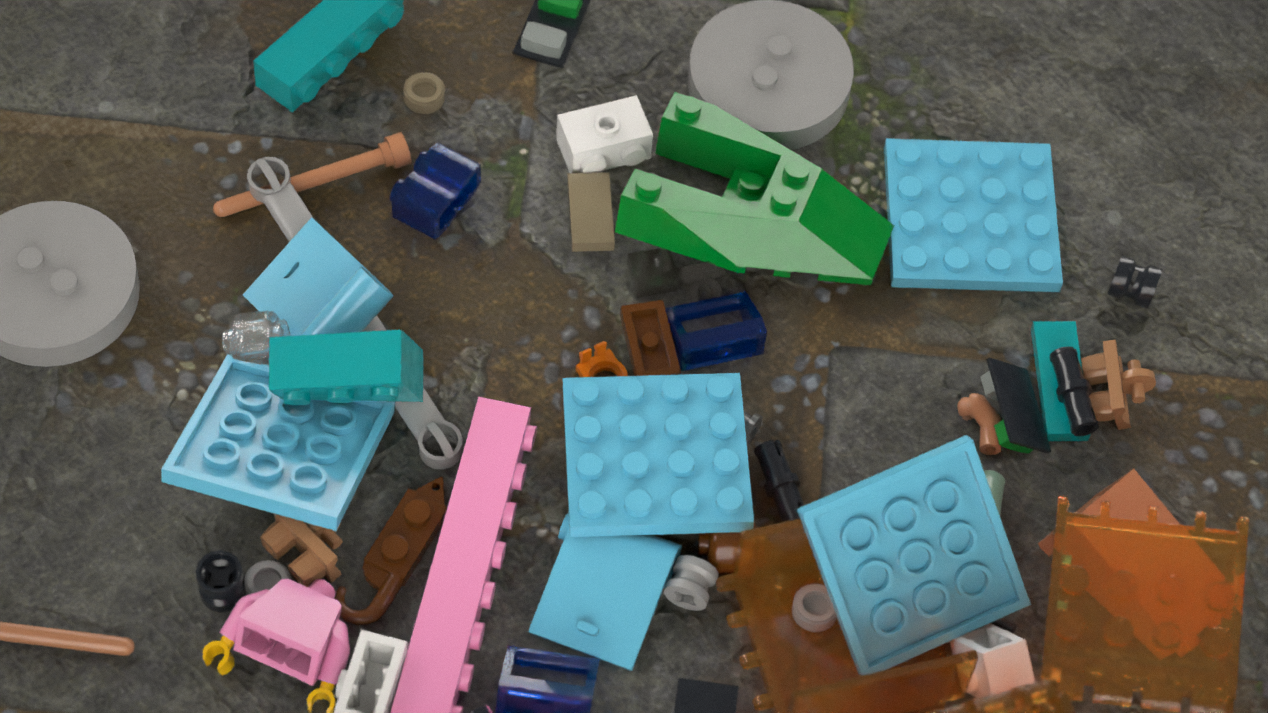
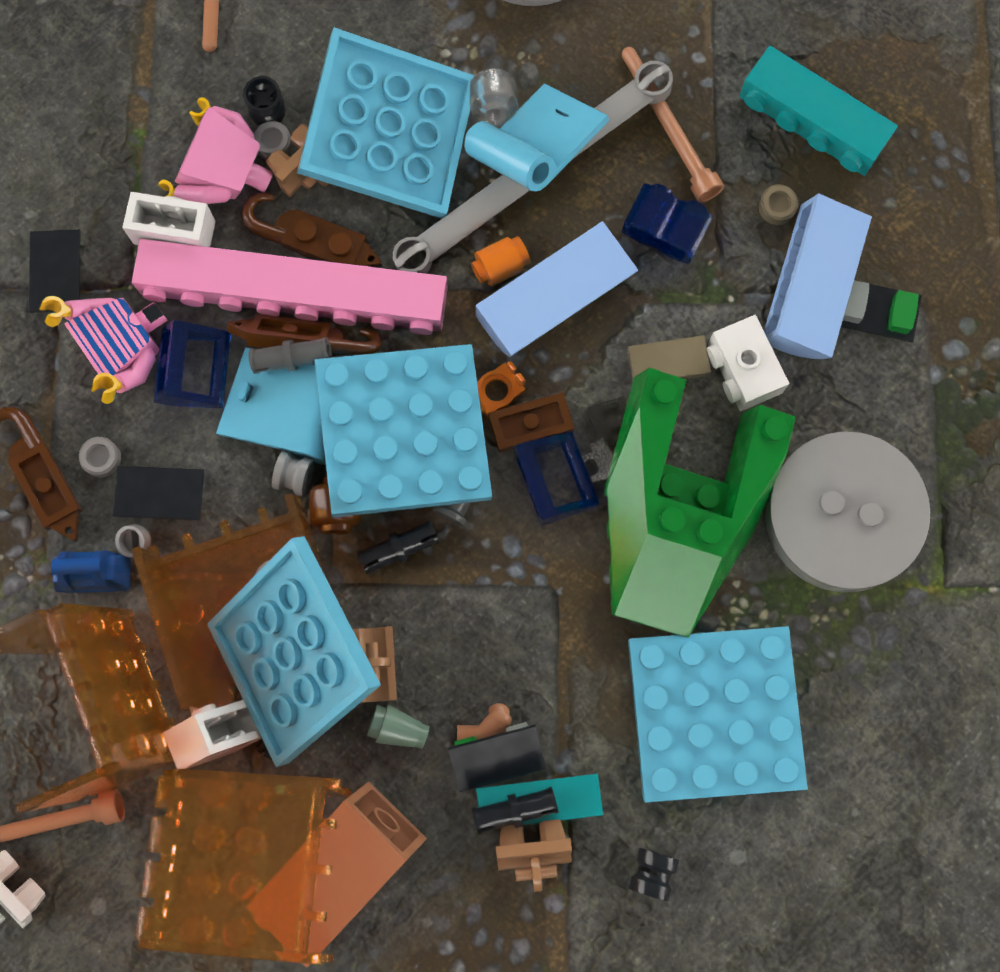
camera: 90 degrees right, 20 degrees up
(346, 367) = (447, 162): teal wedge -> none
(459, 352) = (500, 261): none -> orange brick
(503, 303) = (554, 289): none -> light blue brick
(515, 64) = (816, 278): none -> light blue brick
(525, 562) = (271, 331): none -> reddish brown plate
(556, 562) = (289, 355): none -> dark grey pin

